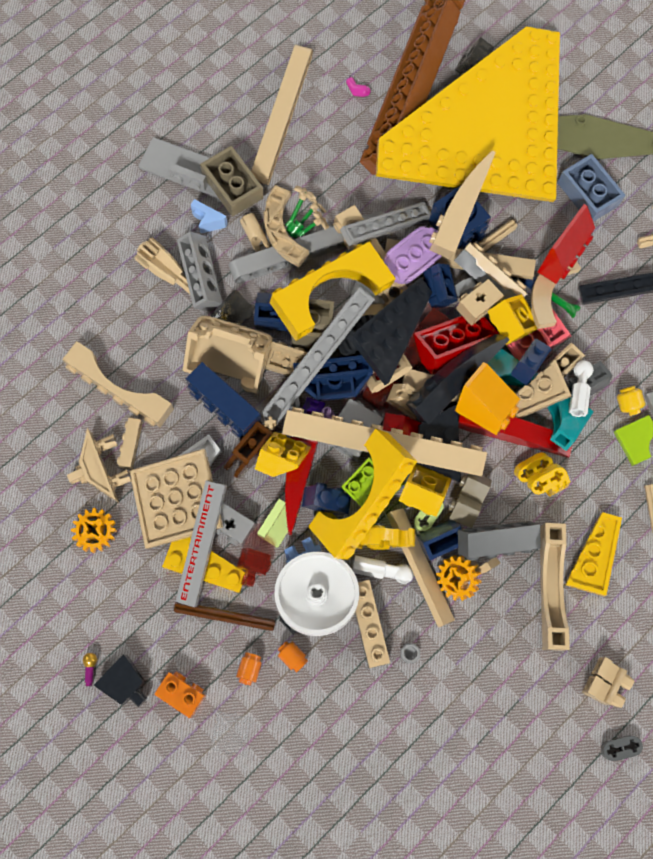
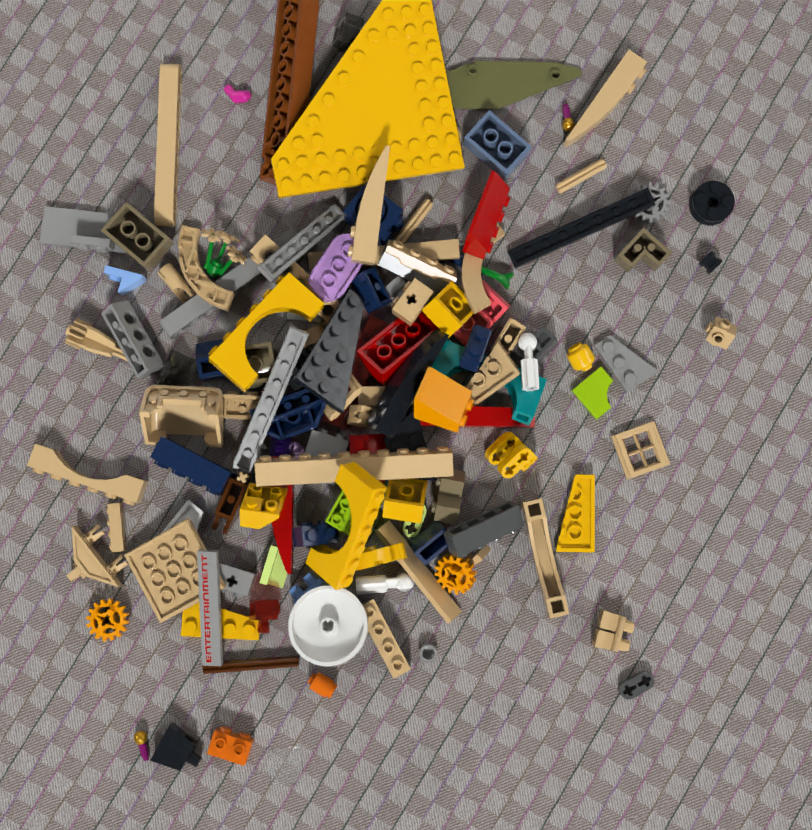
camera: 10 degrees left, 10 degrees up
(249, 669) = (286, 706): orange brick -> none

